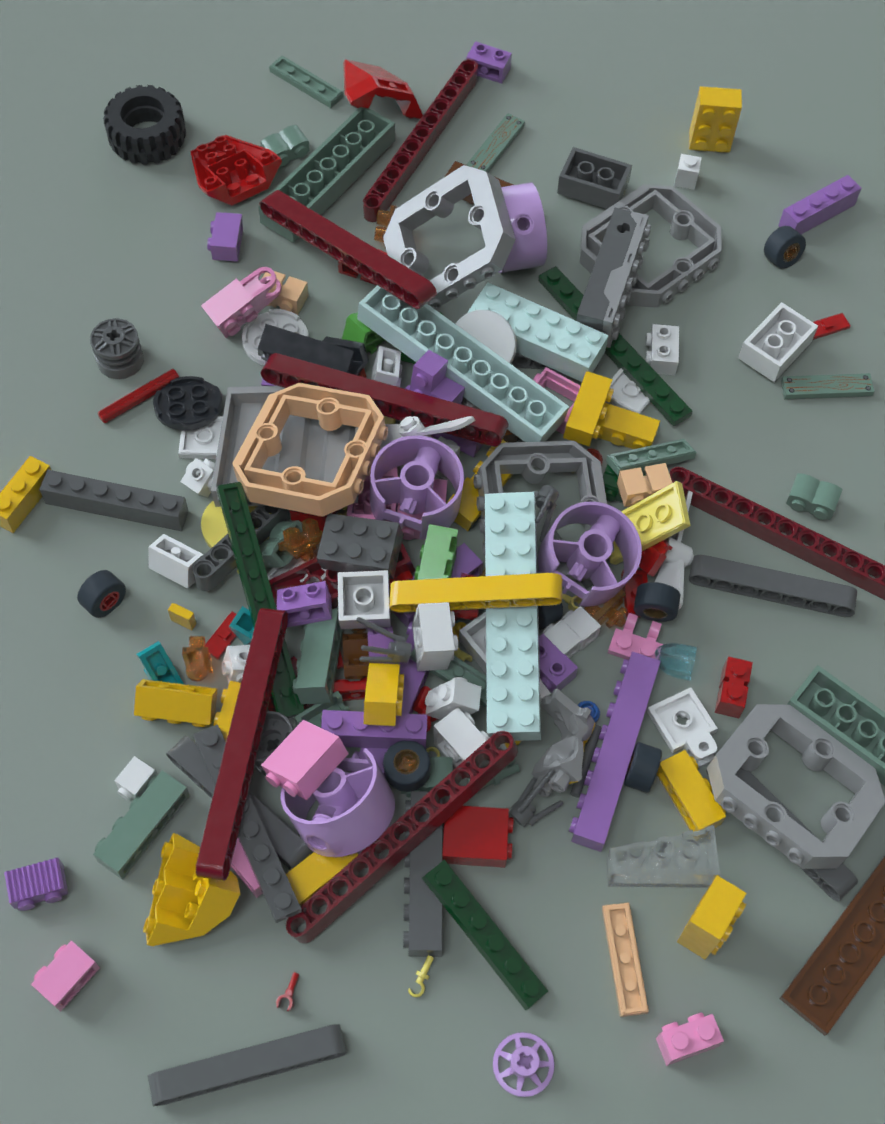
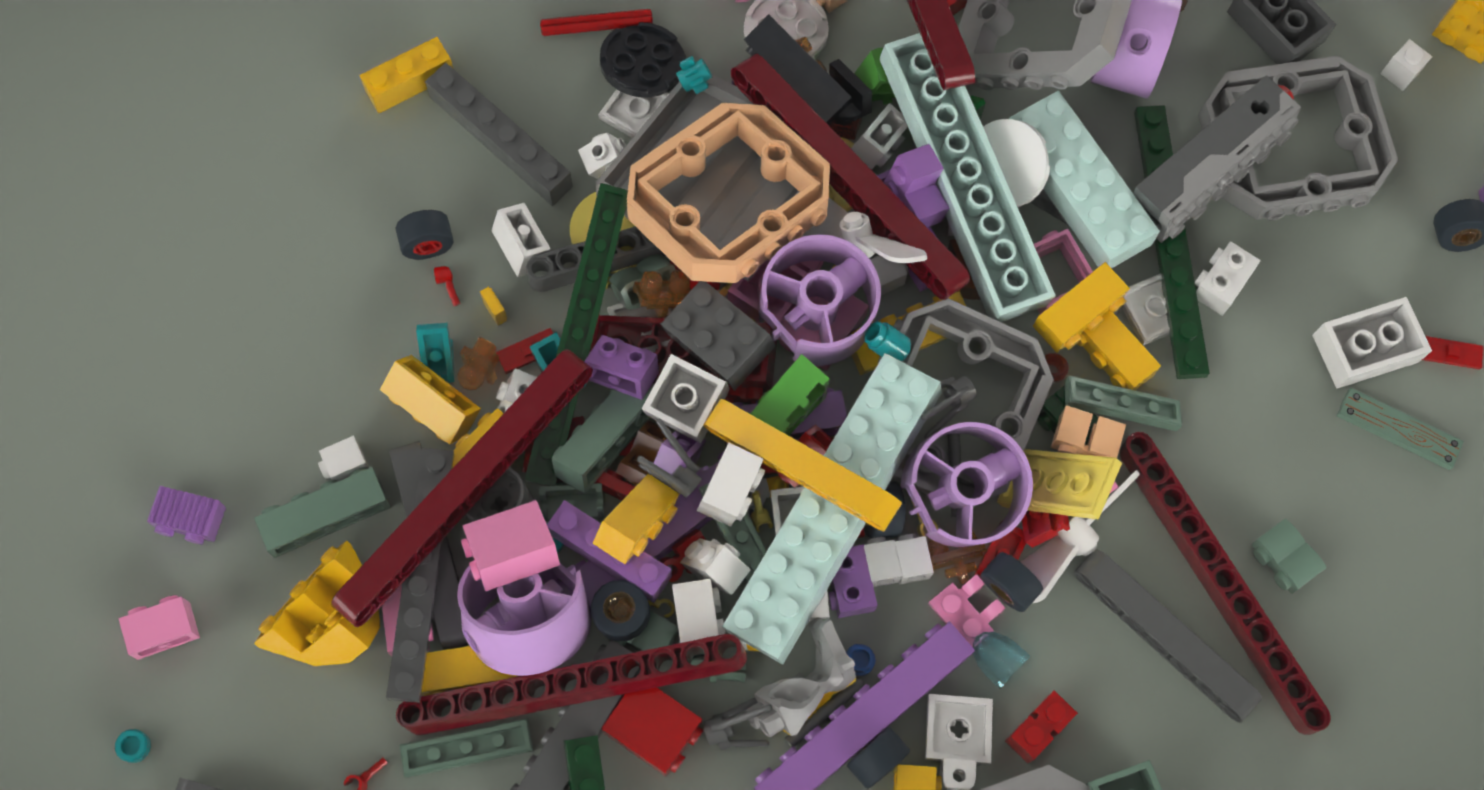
camera: 30 degrees right, 10 degrees up
(94, 1077) = (132, 746): none -> teal tile
(132, 615) = (444, 275): none -> red hand
(235, 390) = (694, 75): none -> teal gear
(350, 930) = (466, 748): none -> sand green tile
(477, 486) = (886, 339): none -> teal brick

